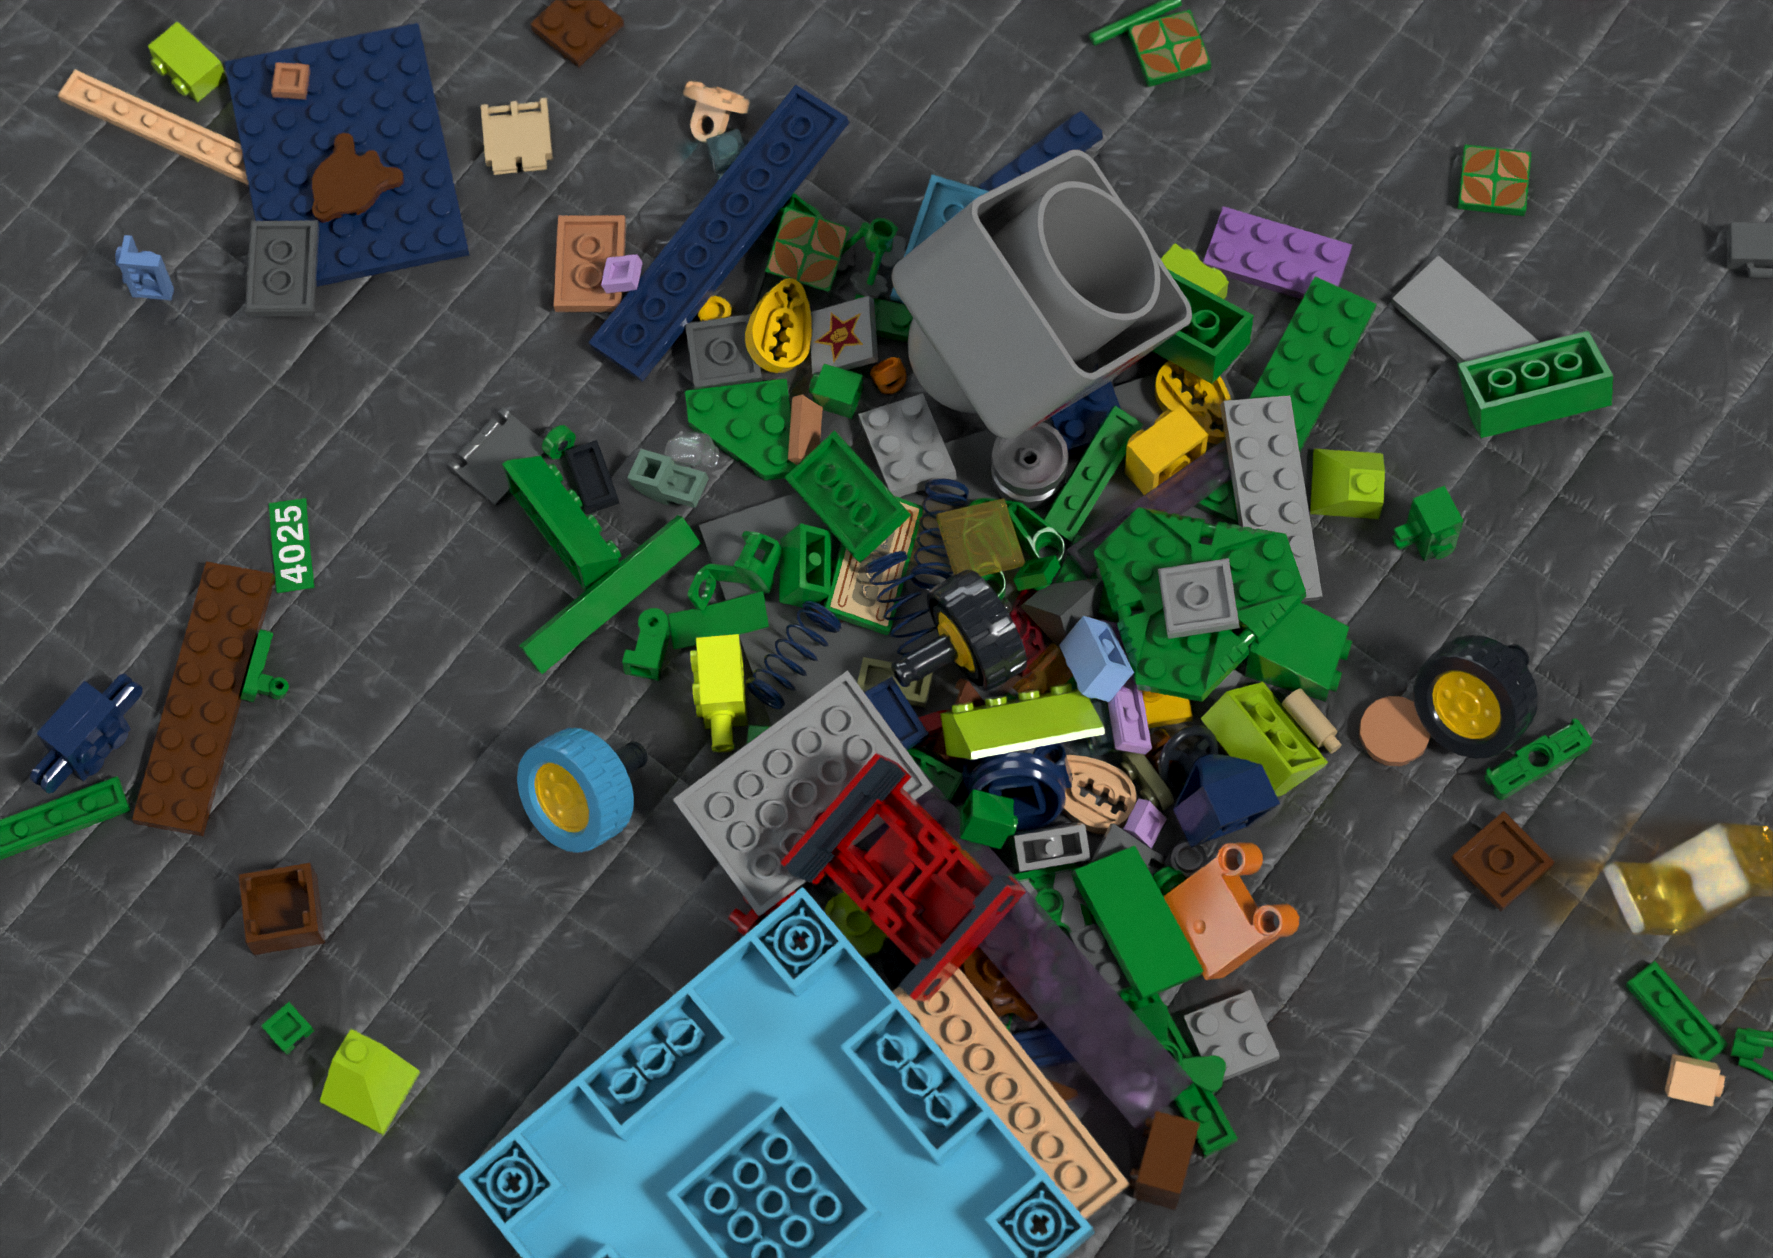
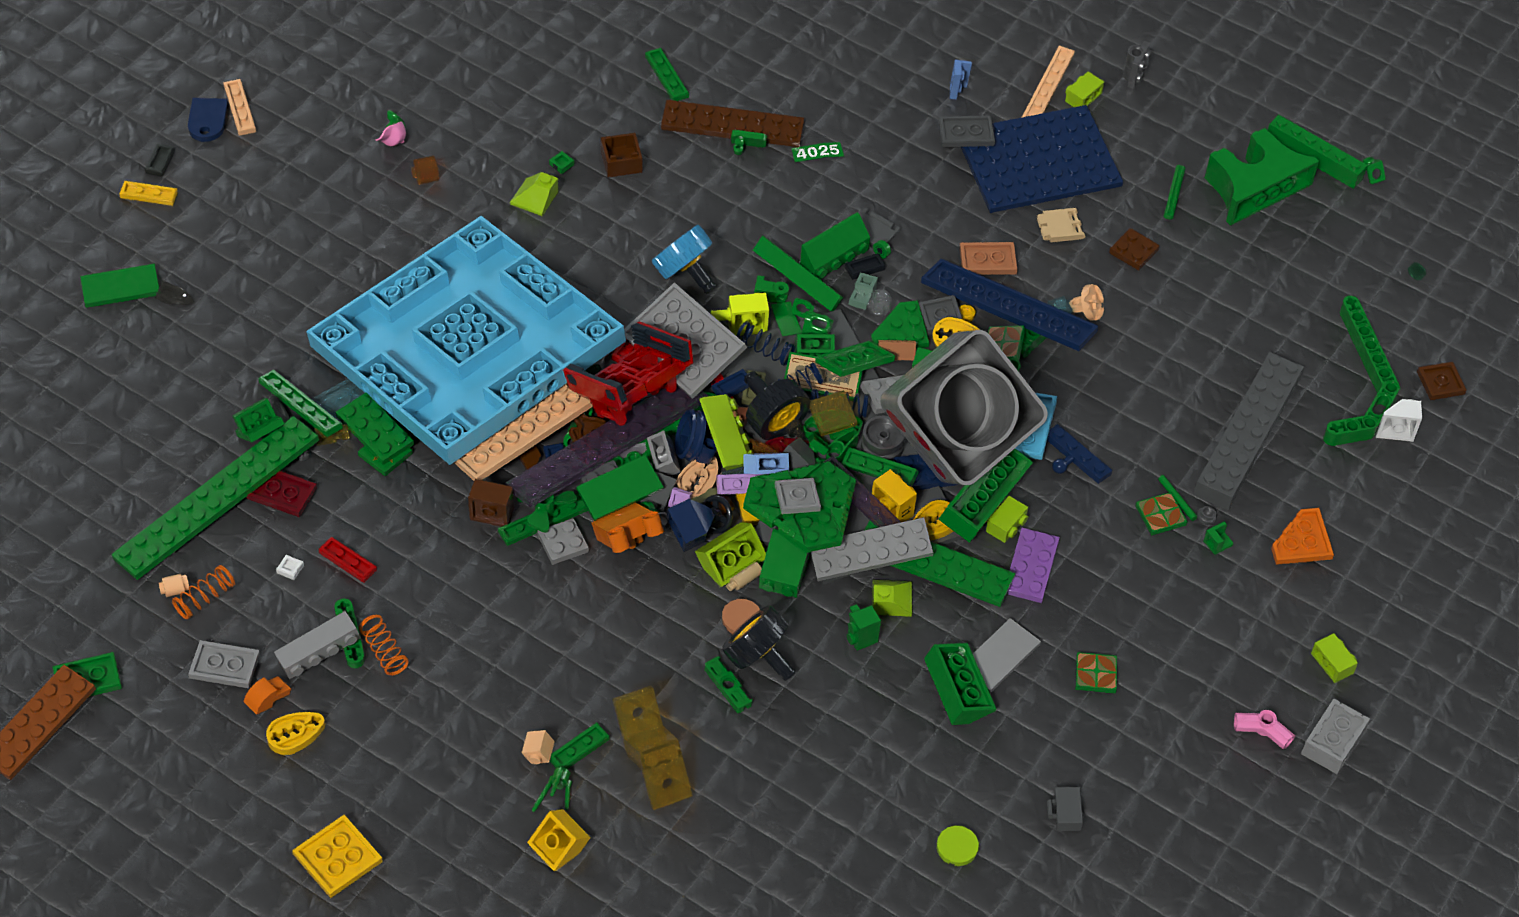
camera: 80 degrees right, 15 degrees down
(85, 732) = (707, 74): dark blue brick -> none
(290, 80) = (1076, 128): nougat tile -> none
(350, 181) = (1021, 154): reddish brown tile -> none
(621, 273) = (978, 265): lavender plate -> none
(987, 819) = (673, 419): green brick -> none
(1502, 861) = (665, 664): reddish brown plate -> none

